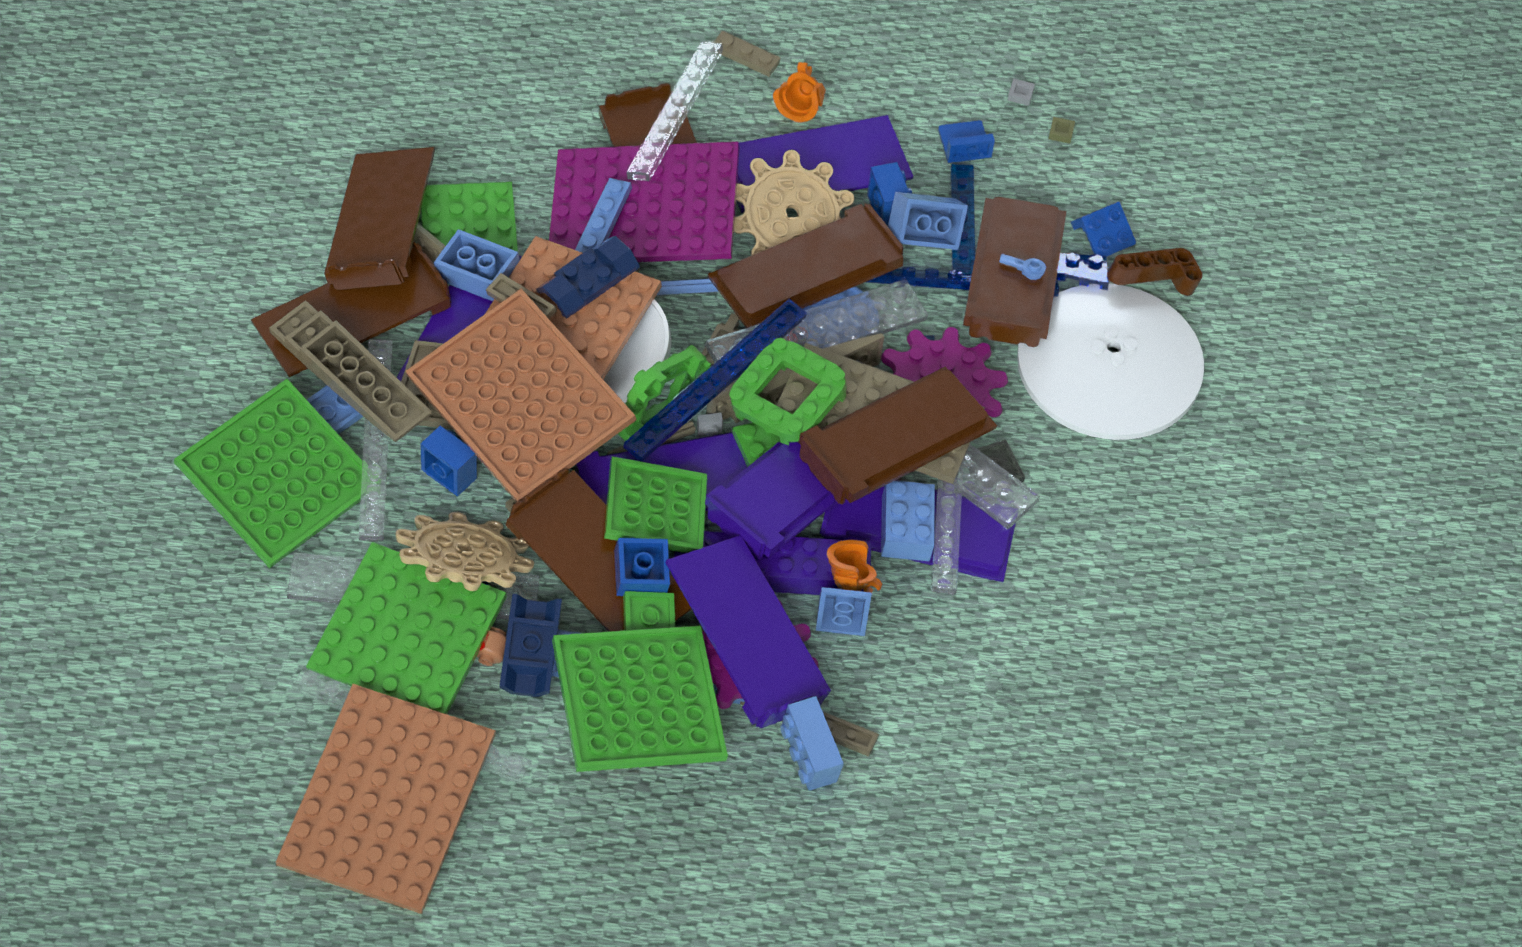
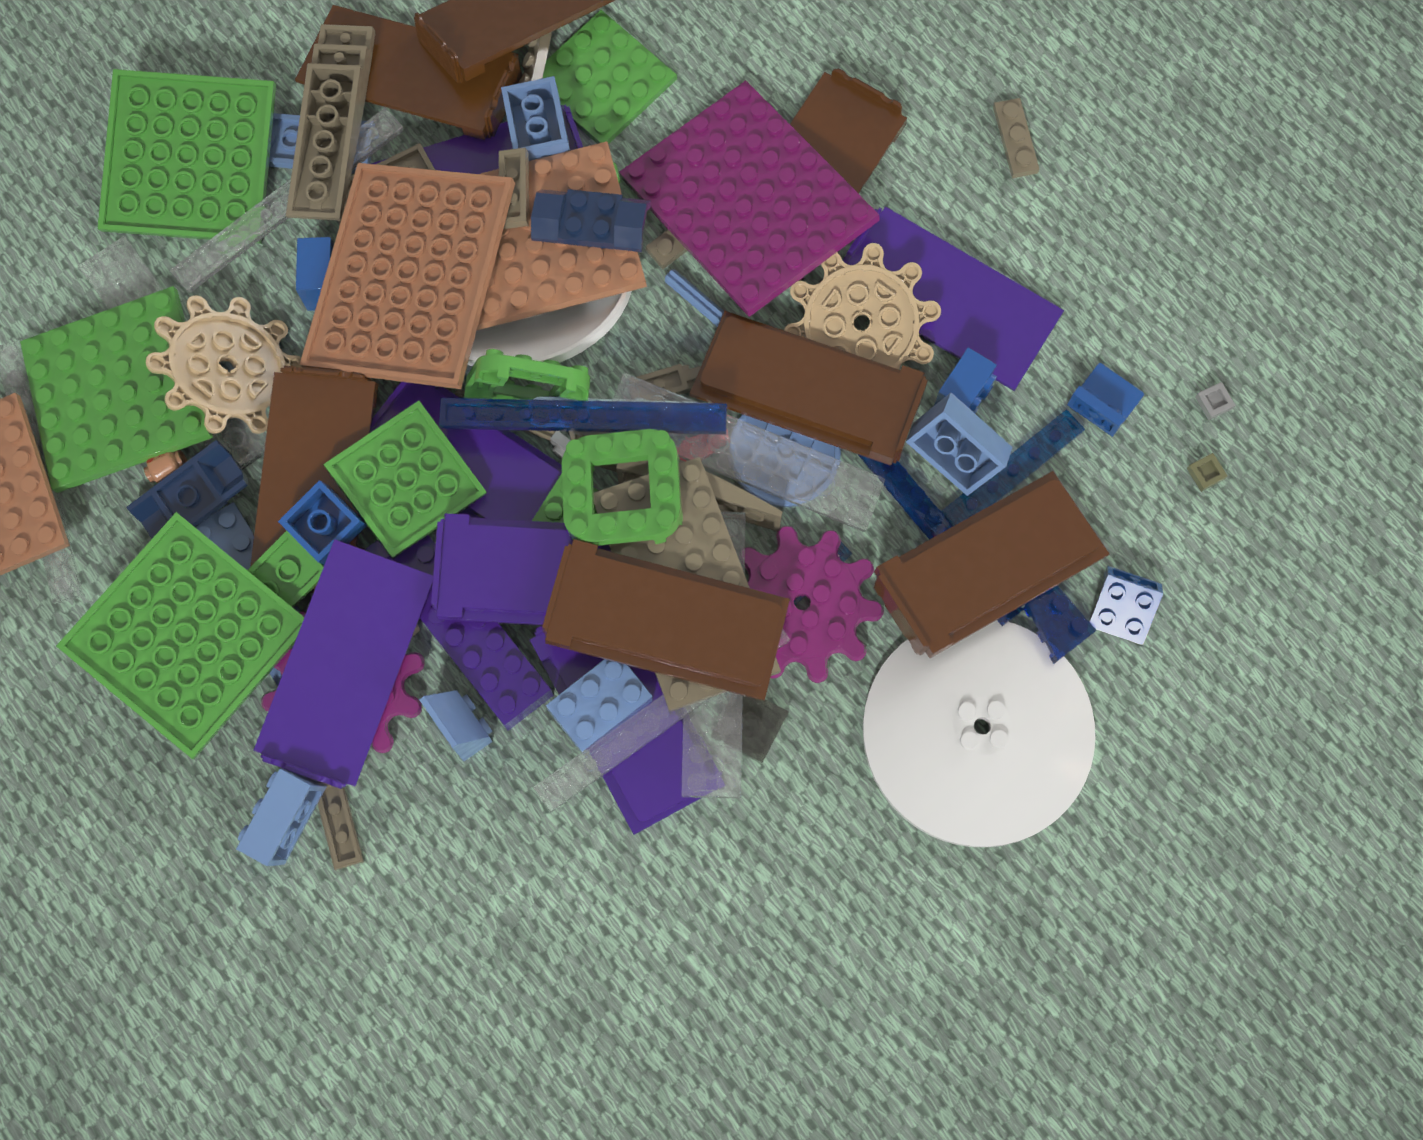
camera: 55 degrees right, 20 degrees up
(605, 214) = (694, 177): medium blue plate -> none
(674, 111) = (871, 135): clear plate -> none
(800, 95) = (1008, 219): orange helmet -> none
(851, 567) = (485, 698): orange helmet -> none
(1031, 268) = (994, 581): medium blue plate -> none
(1157, 265) = (1116, 689): reddish brown beam -> none

